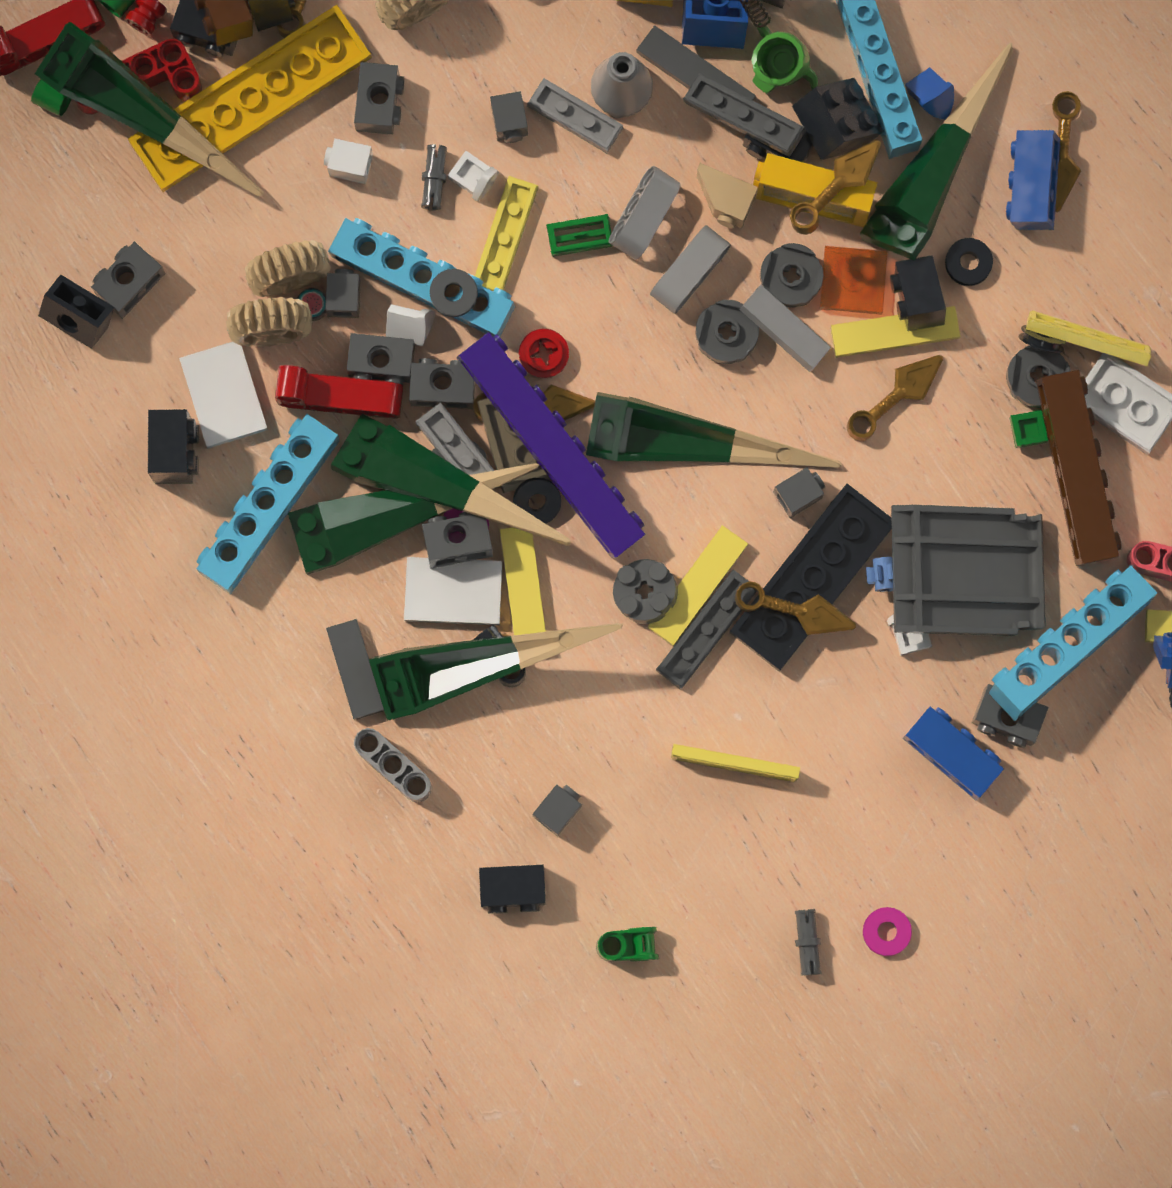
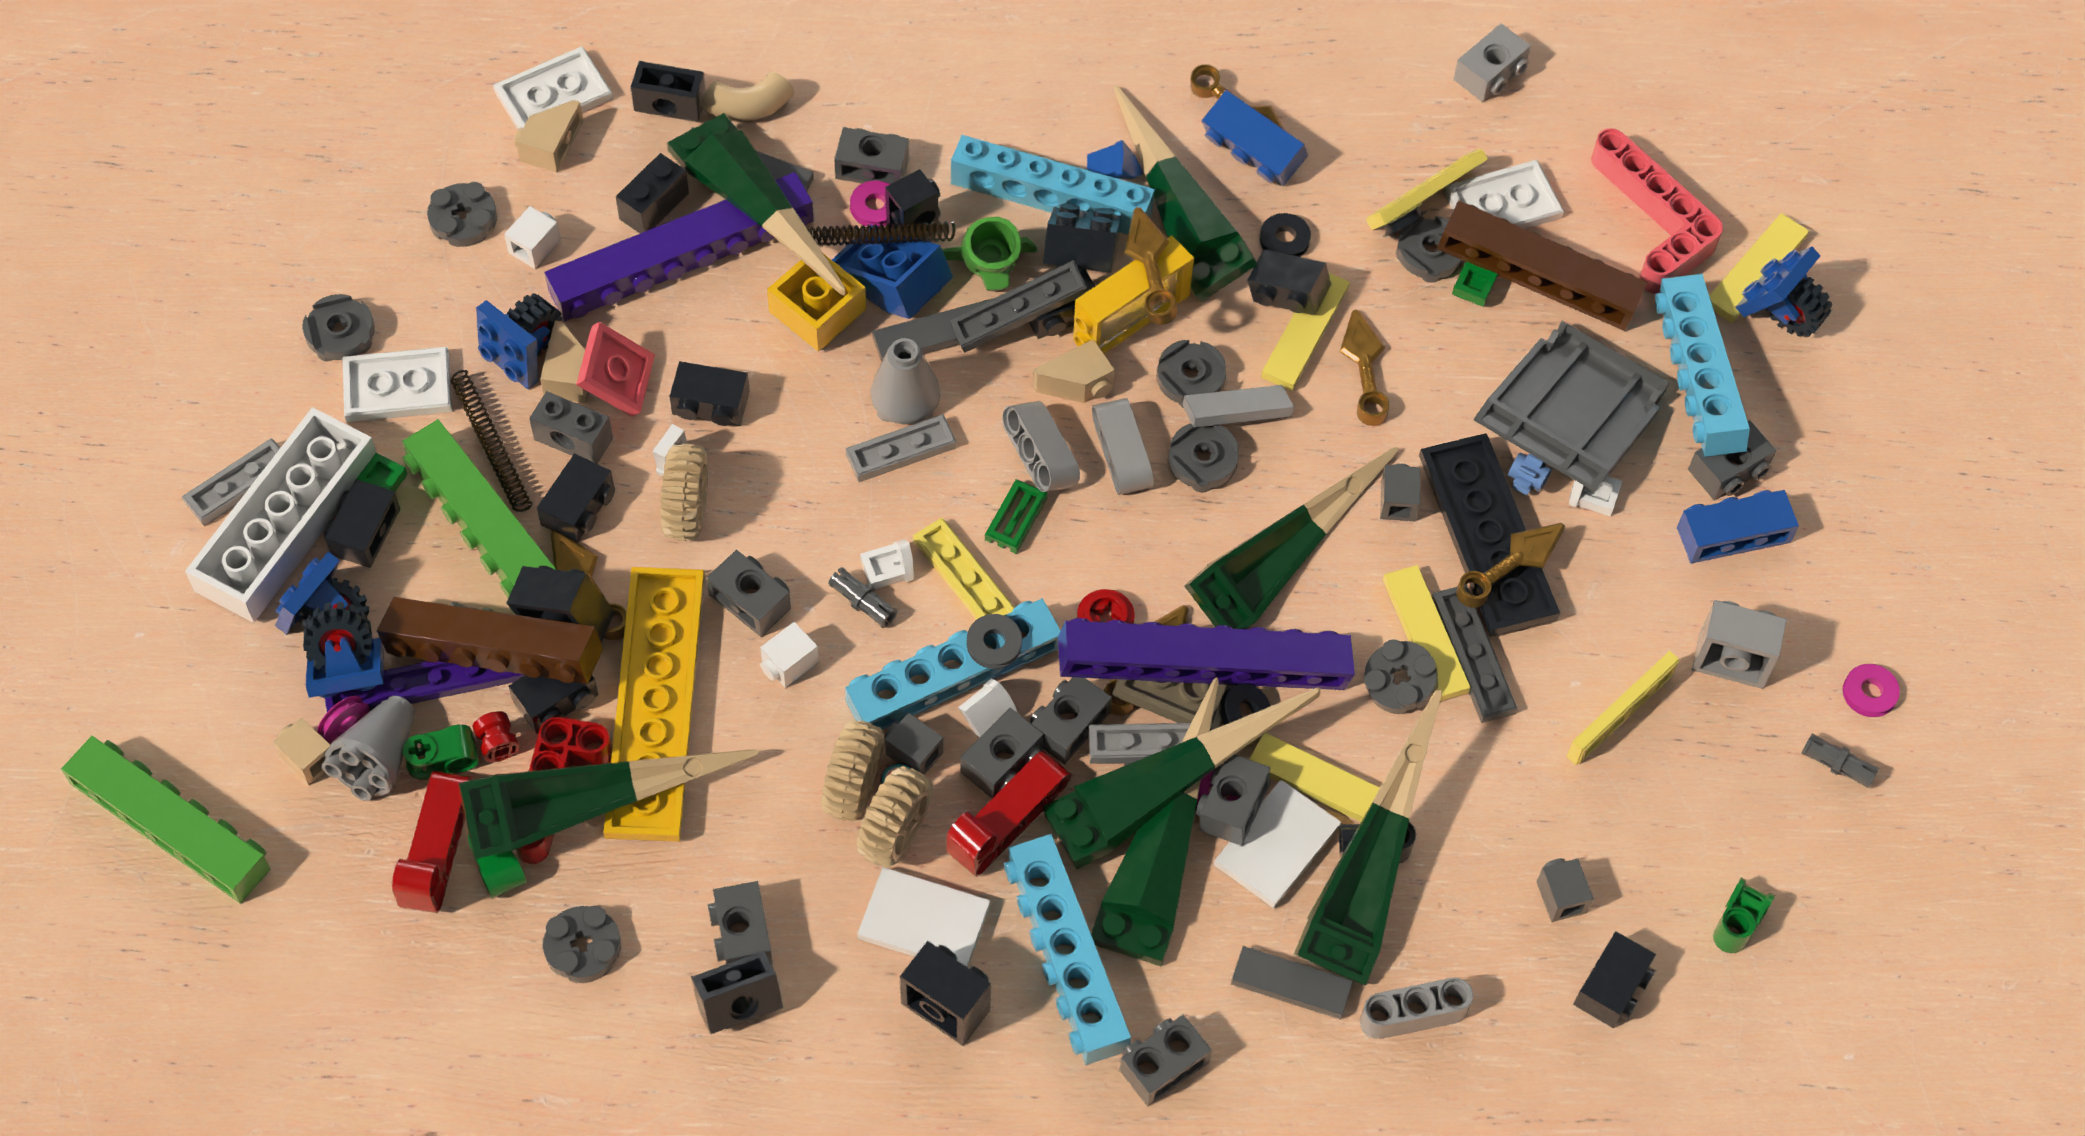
camera: 55 degrees left, 20 degrees down
(46, 202) = (578, 922): none -> dark grey plate
(231, 629) = (1171, 1065): none -> dark grey brick
(509, 117) = (859, 497): dark grey brick -> none
(843, 812) = (1739, 643): none -> light grey brick
(853, 280) = (1234, 330): clear orange tile -> none

